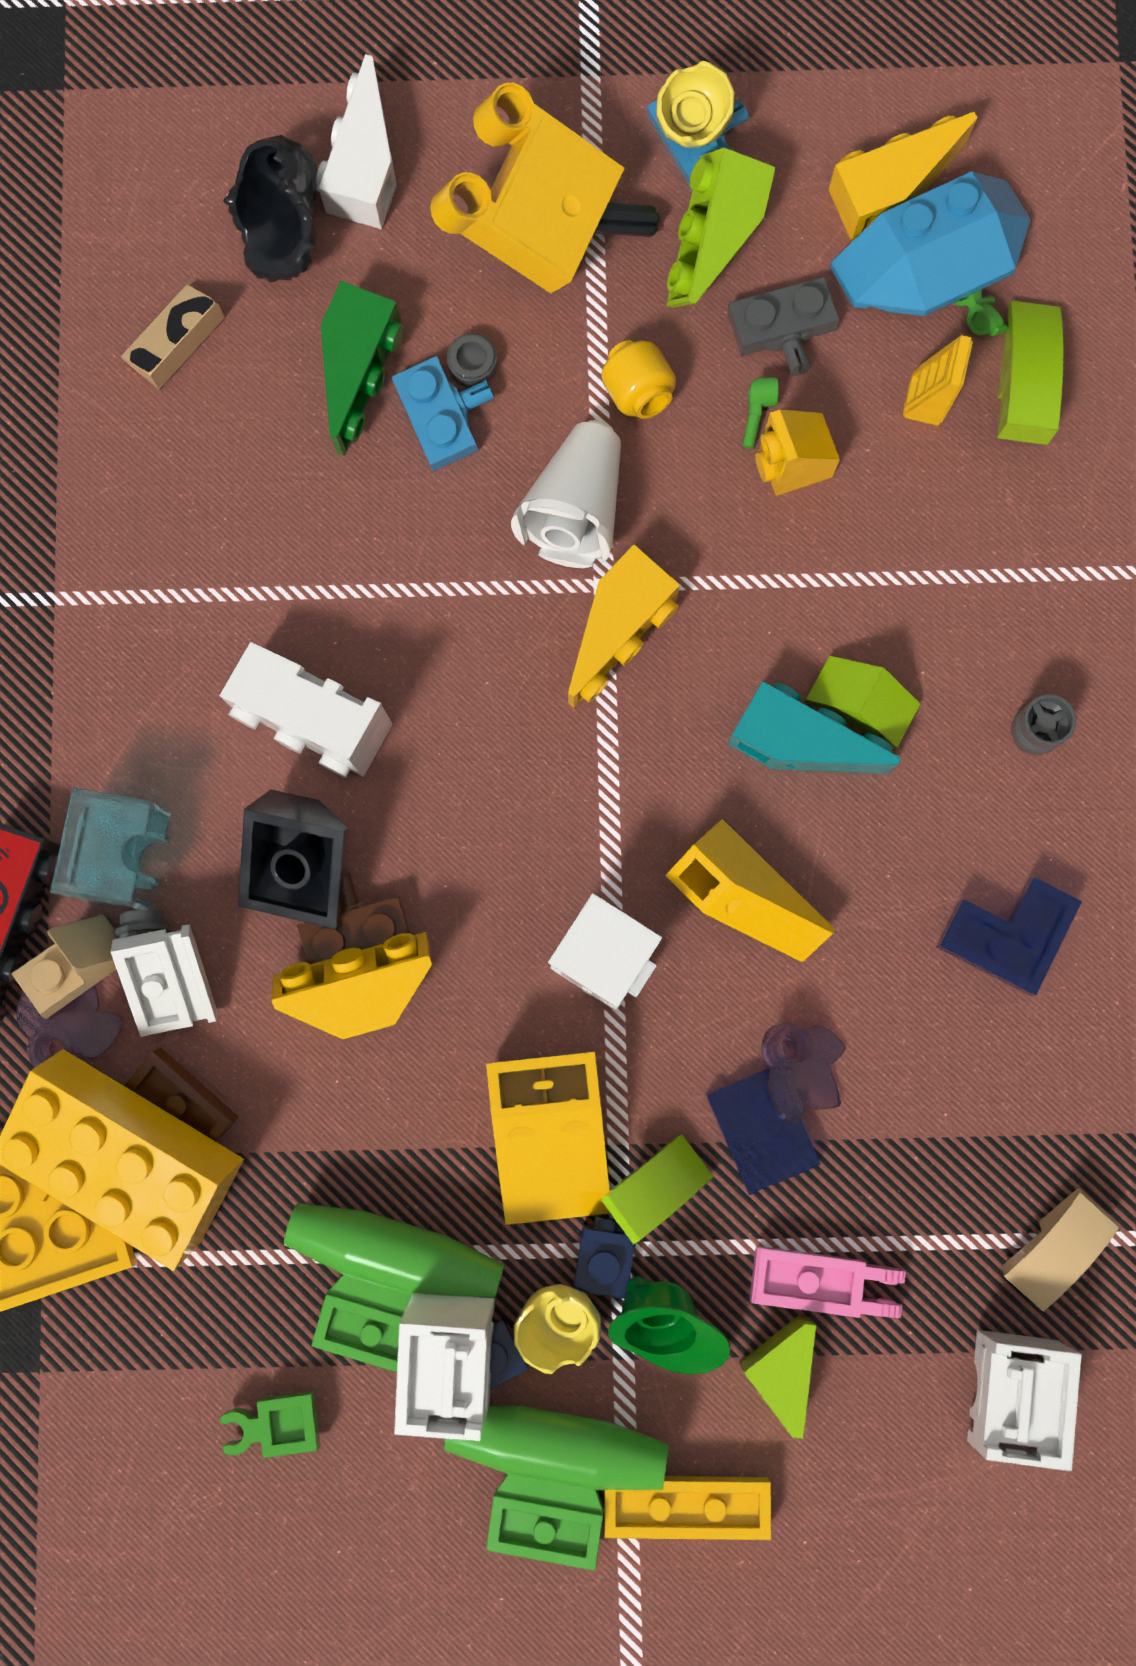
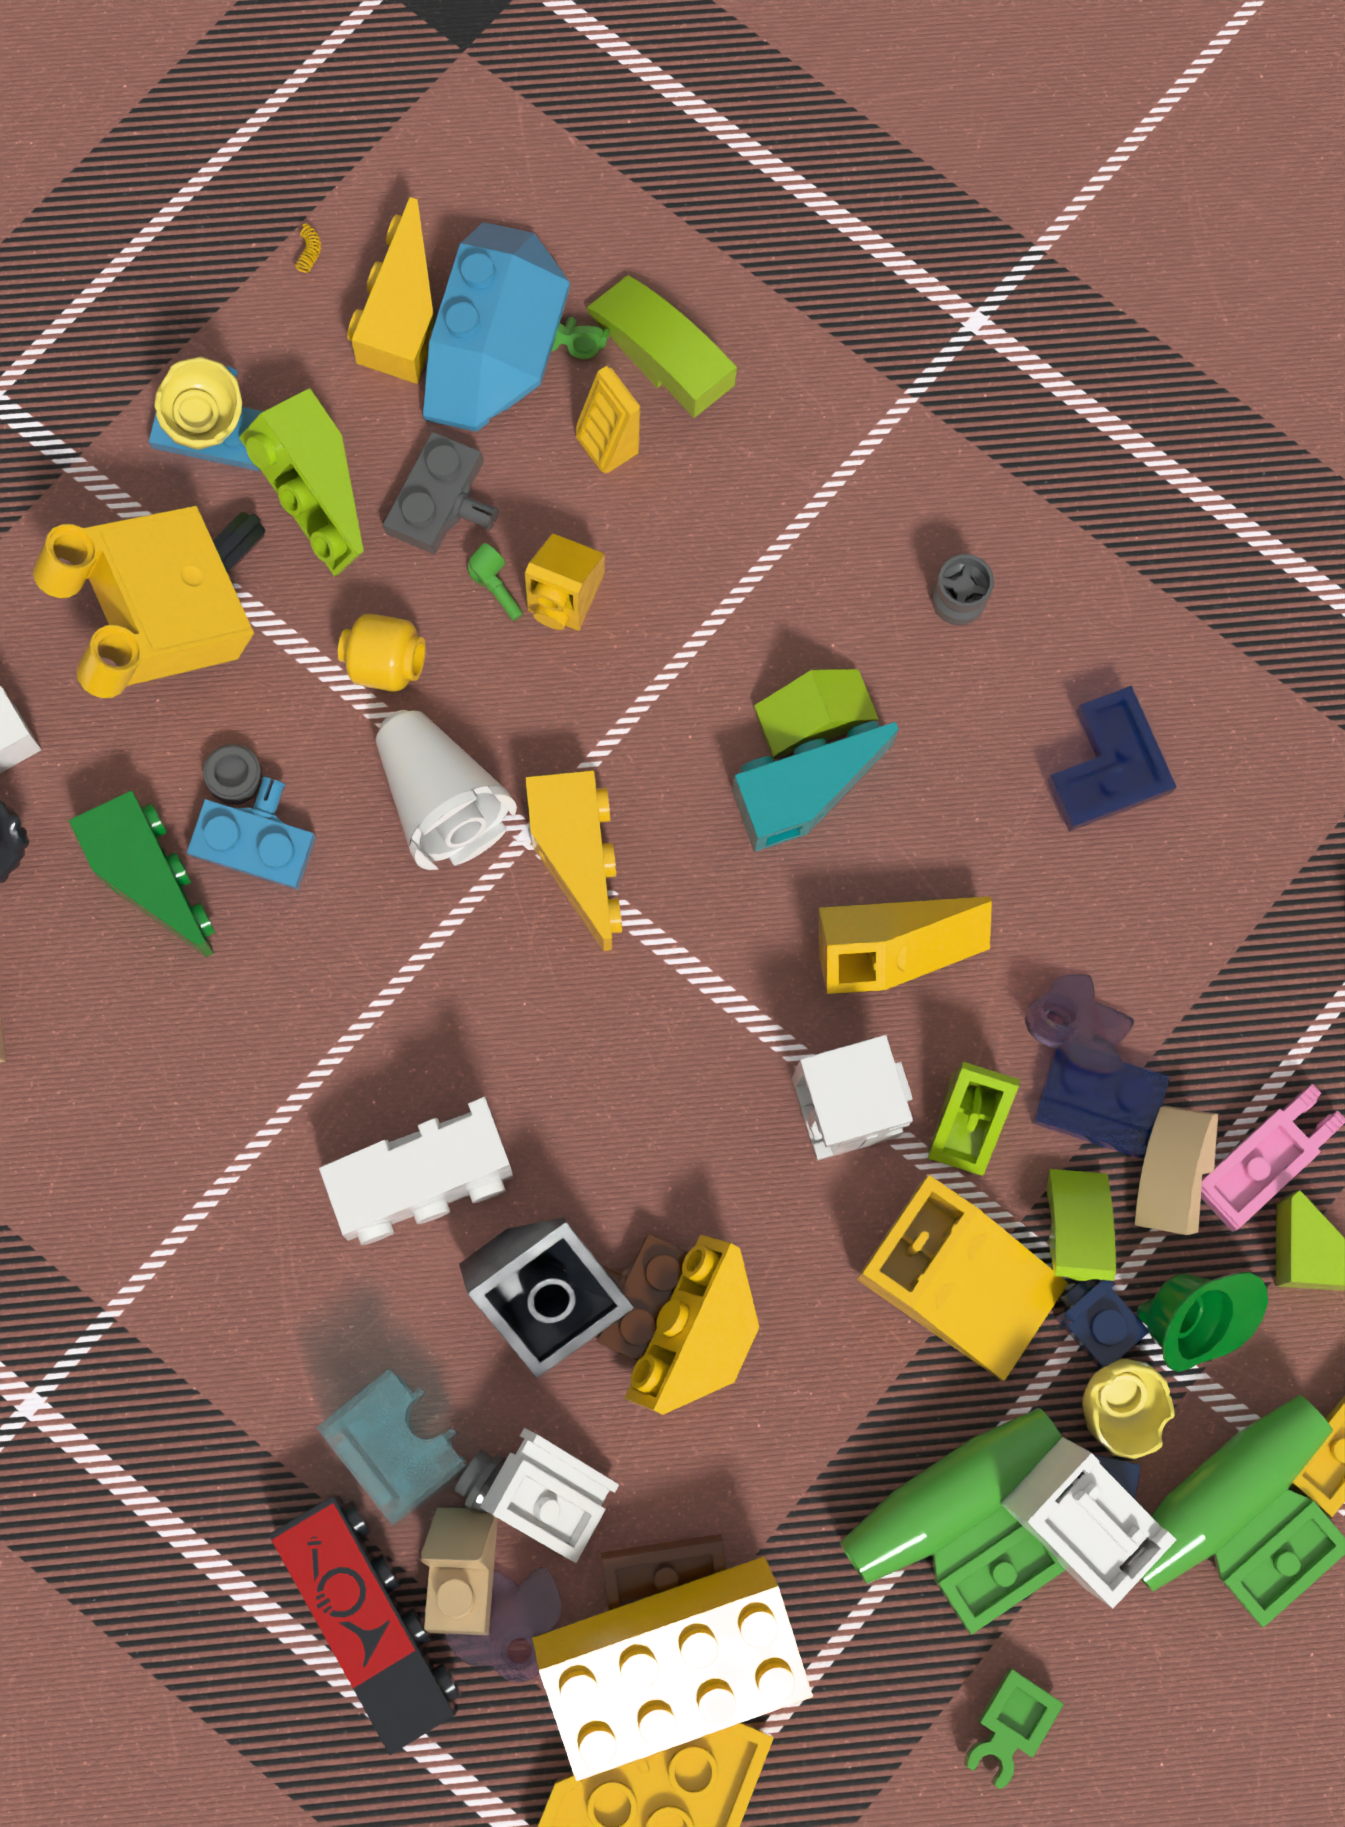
camera: 60 degrees left, 5 degrees down
(667, 1050) = (972, 1117): none -> lime slope
(761, 1218) = (1172, 1171): none -> tan slope
(873, 91) = (308, 248): none -> yellow leg

